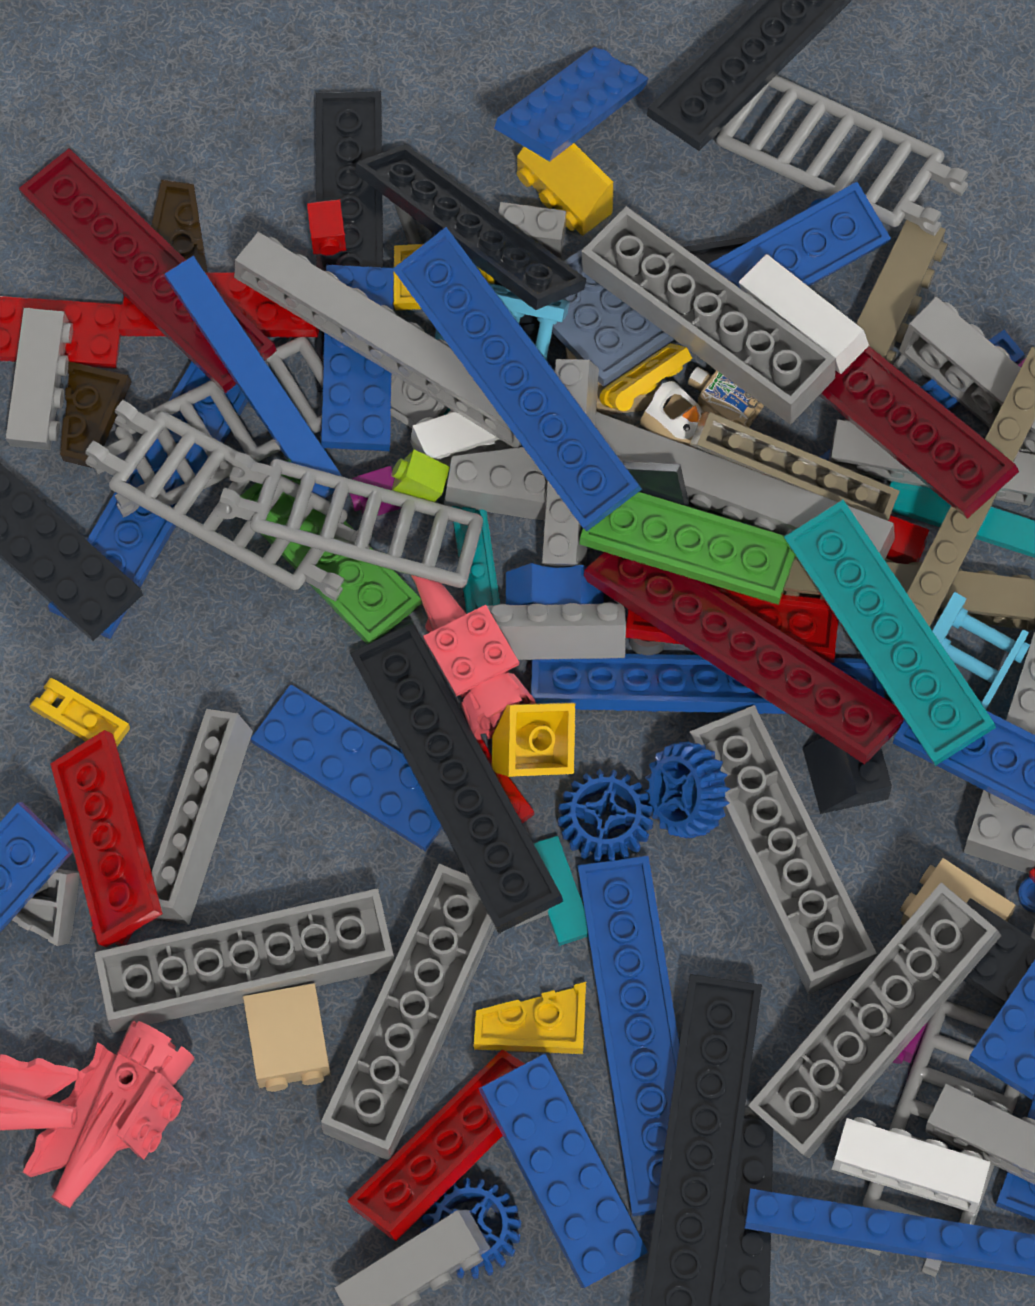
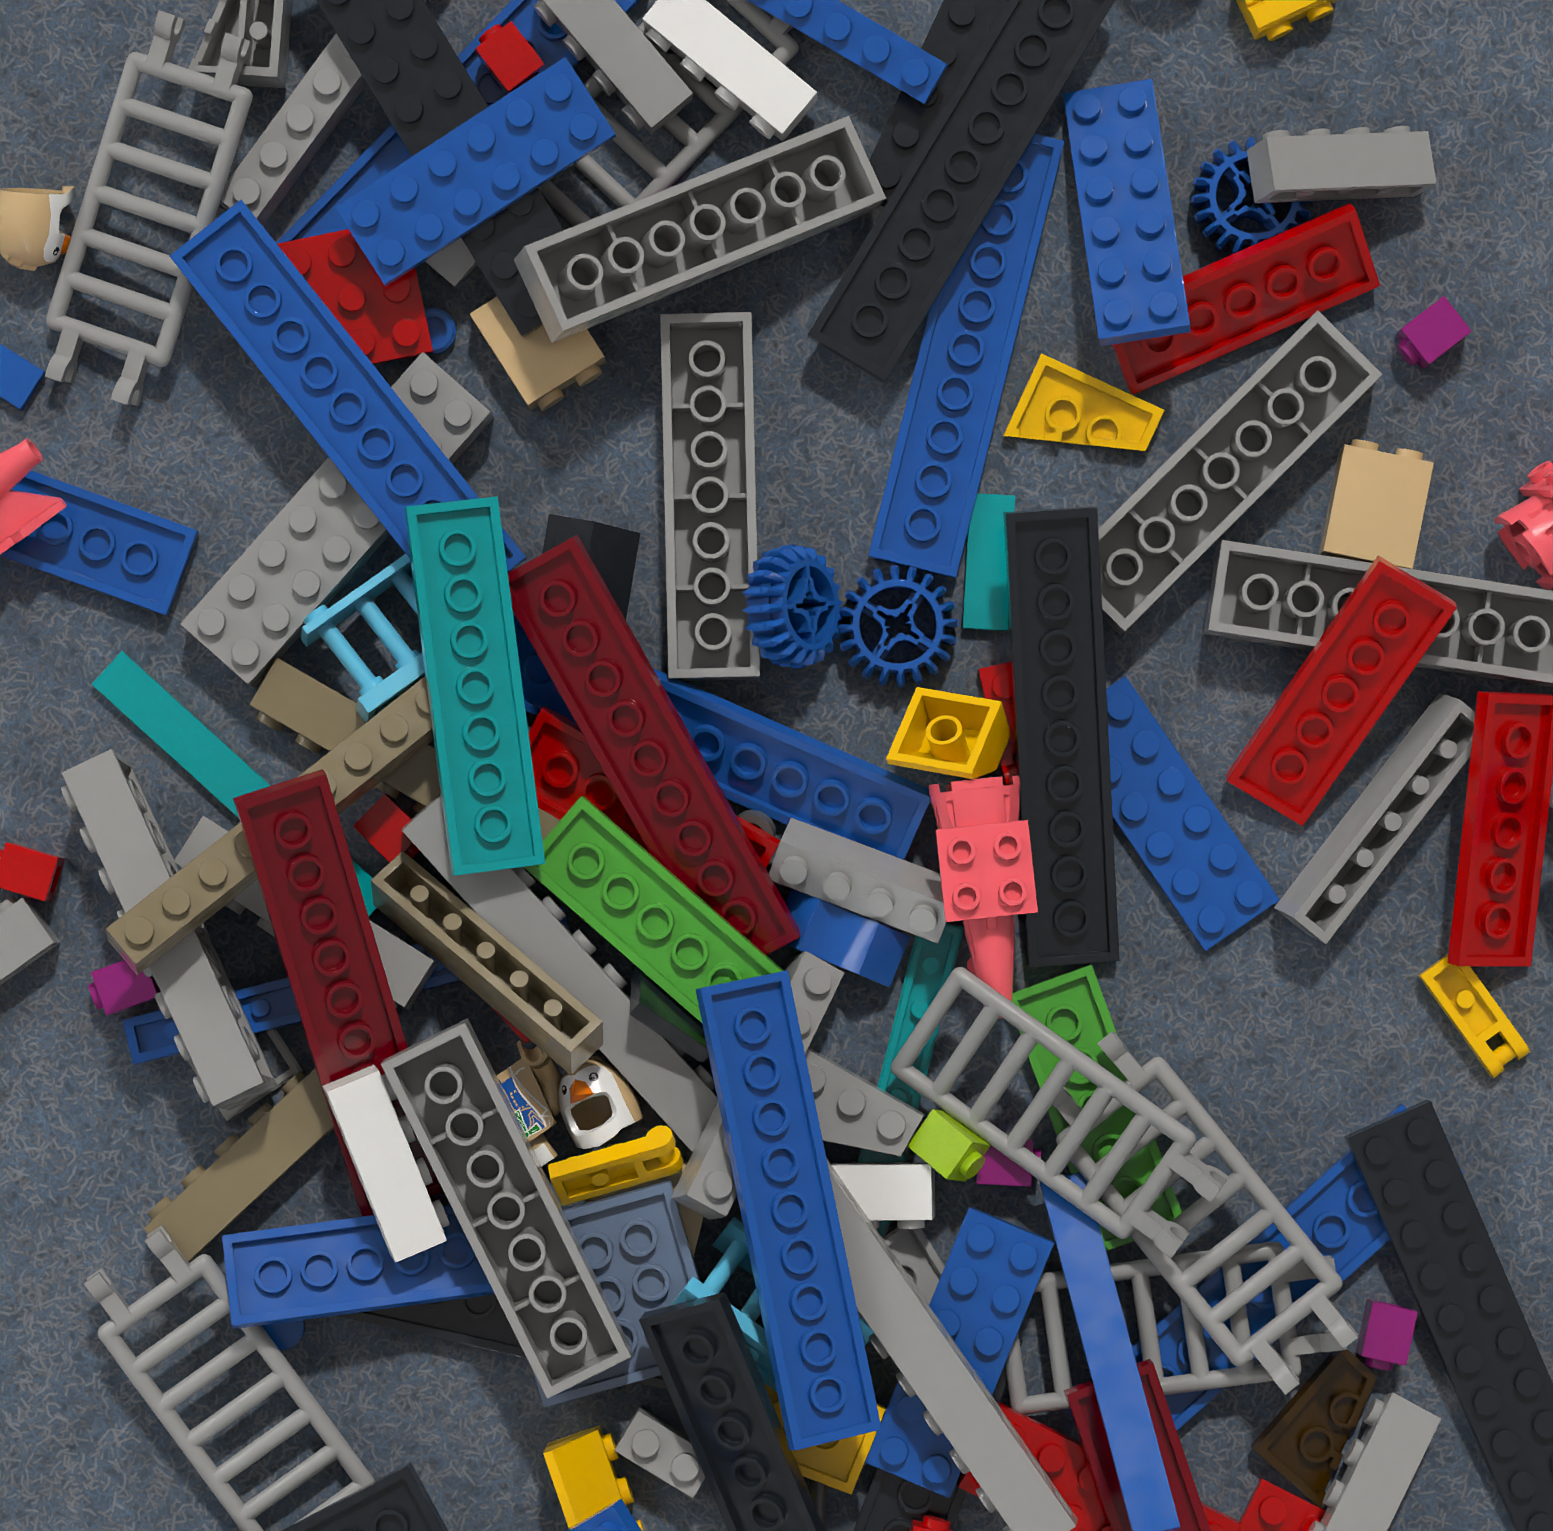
camera: 160 degrees left, 20 degrees up
(64, 483) = (1386, 1334): none -> magenta brick
(263, 883) = (1341, 690): none -> red plate
(293, 1180) = (1431, 334): none -> magenta brick

